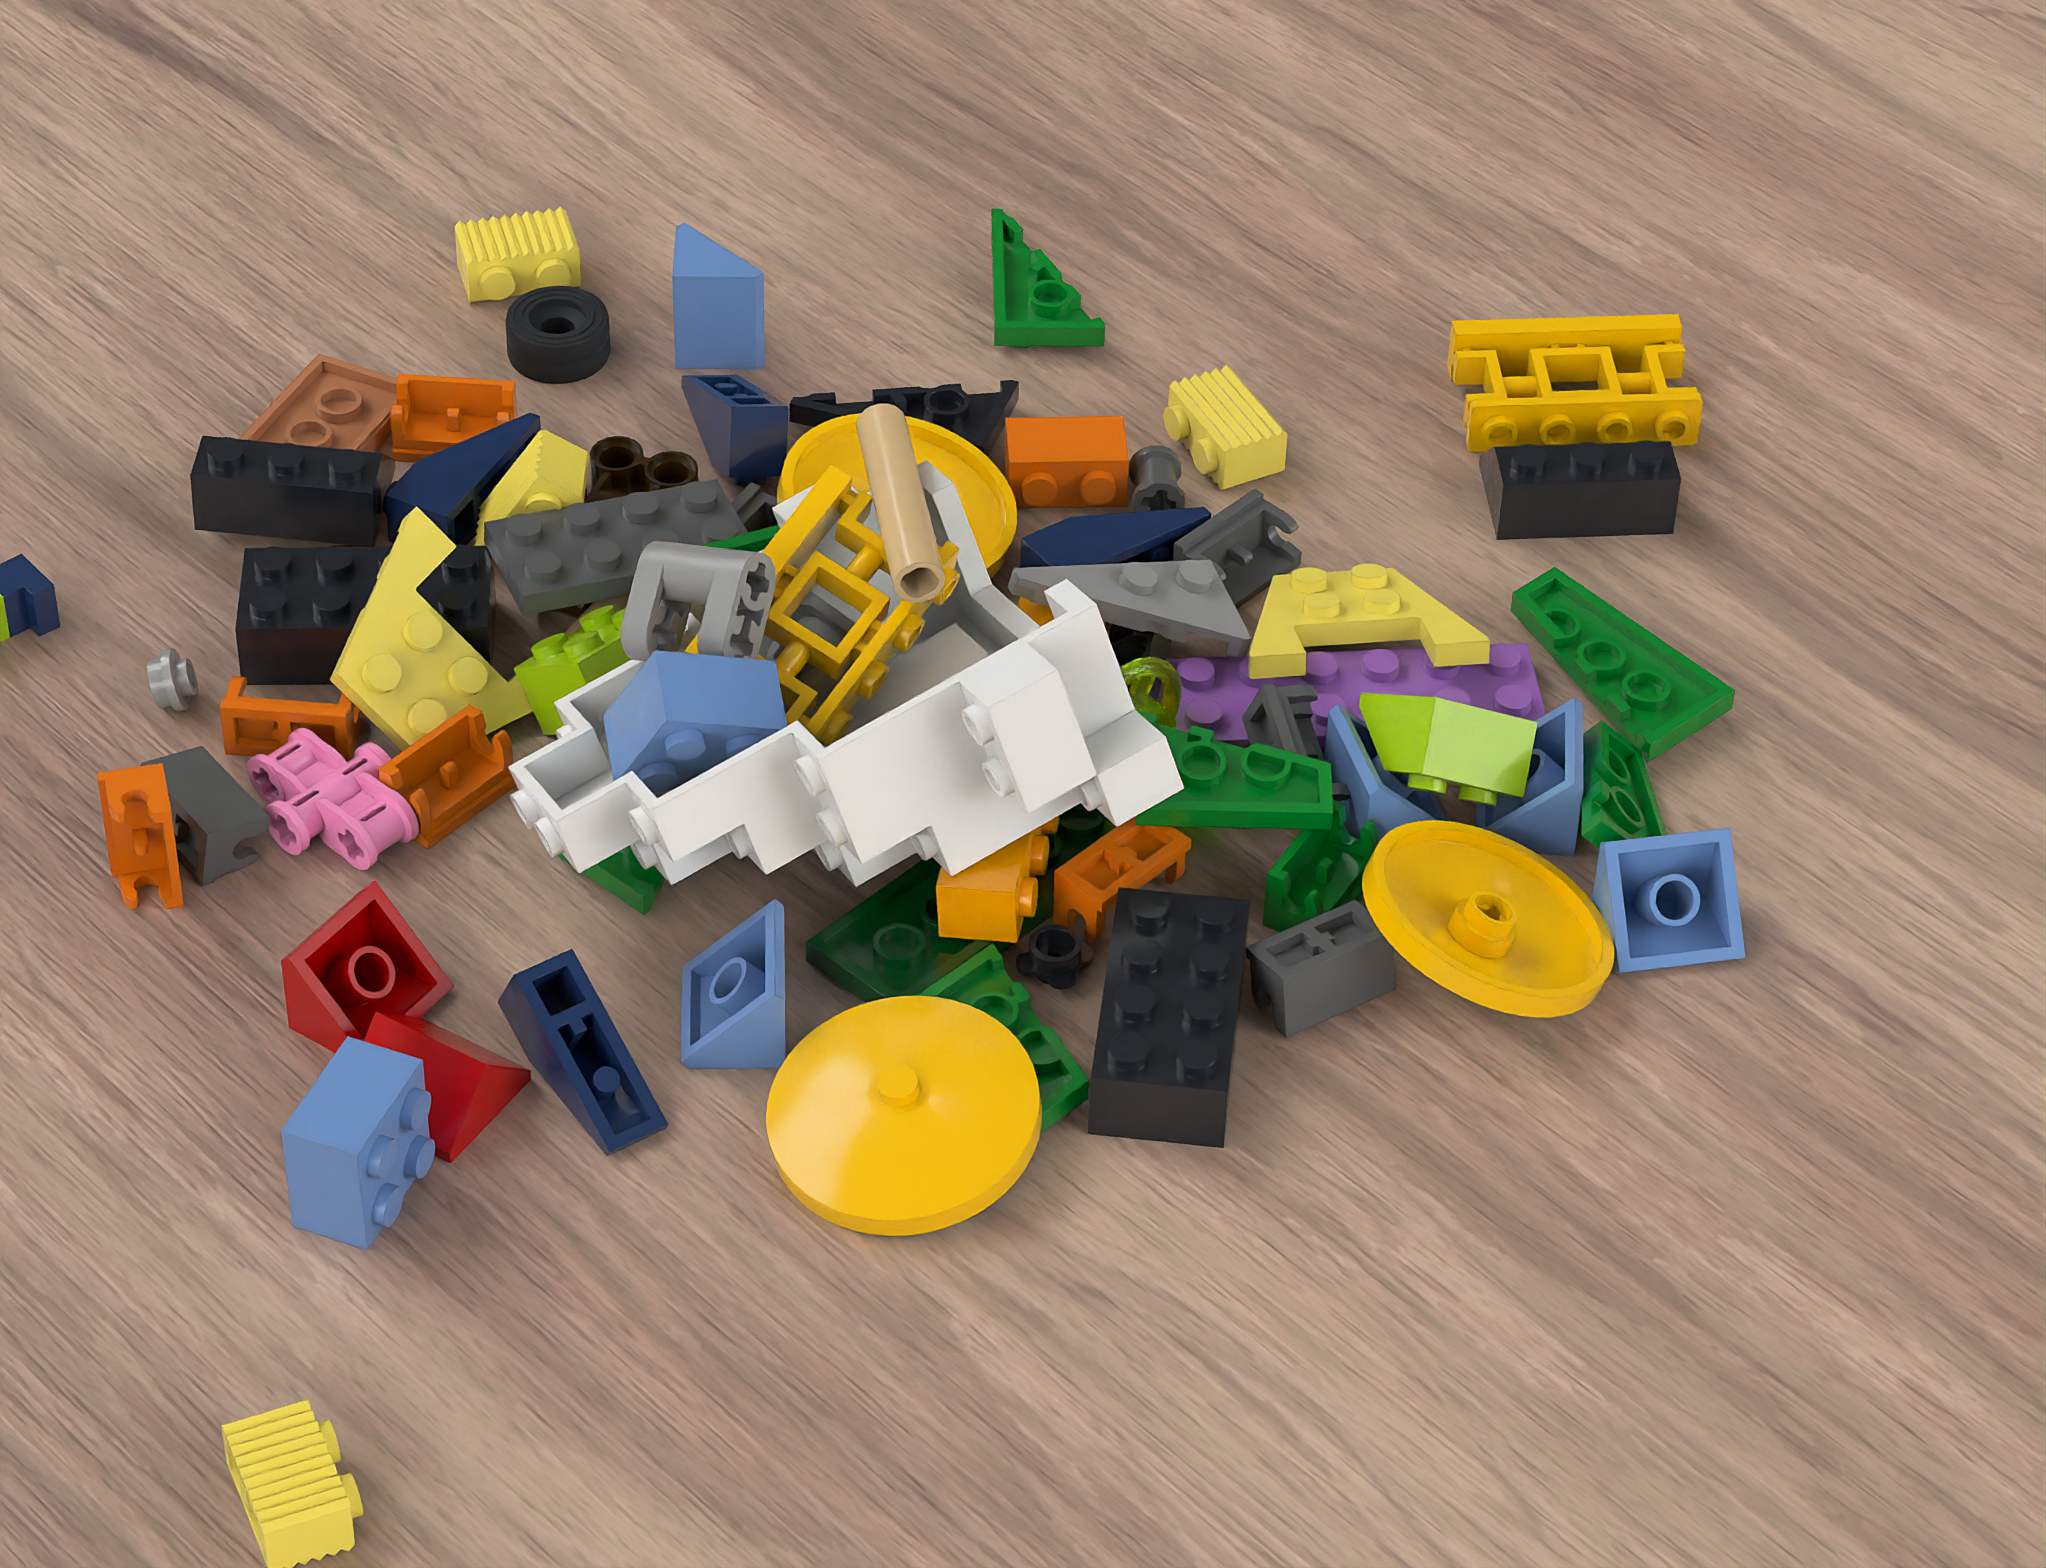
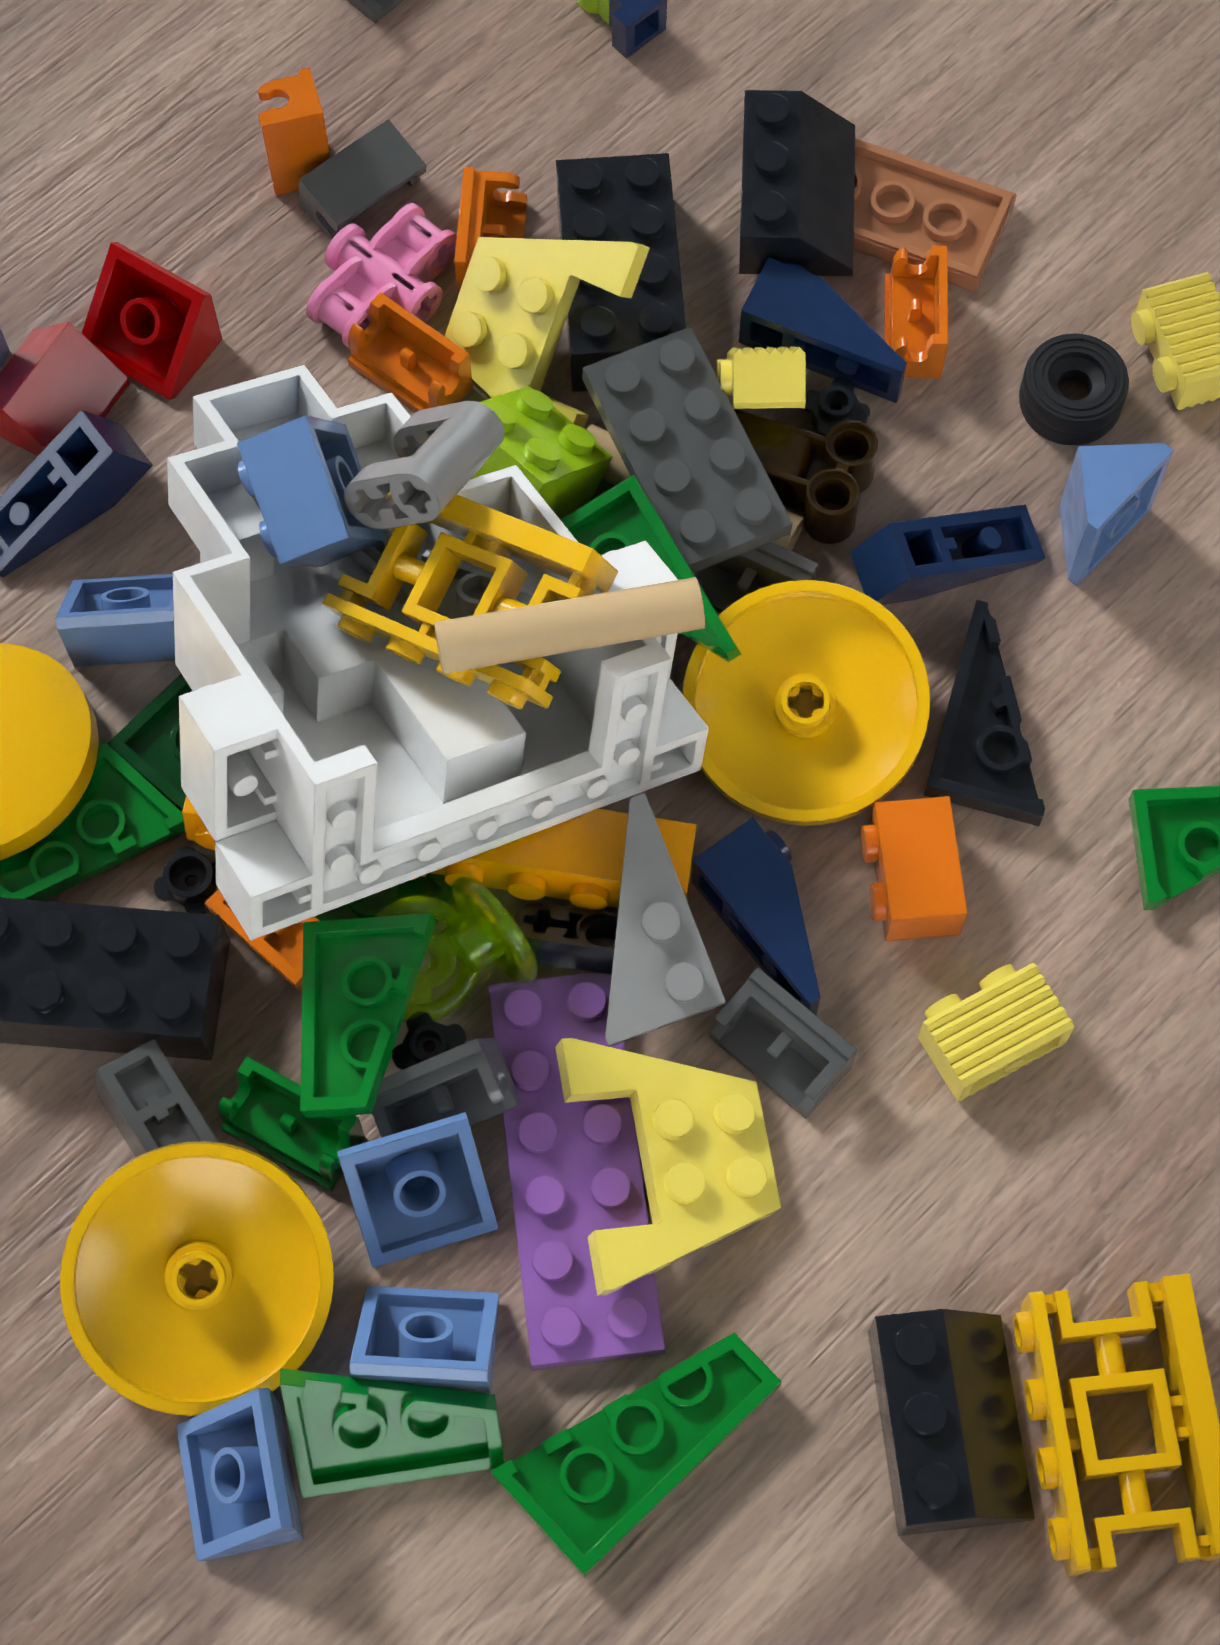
camera: 90 degrees right, 25 degrees up
(172, 680) = (532, 139): light grey plate -> none
(1155, 475) = (893, 961): dark grey bush -> none
(1450, 745) = (436, 1236): lime slope -> none

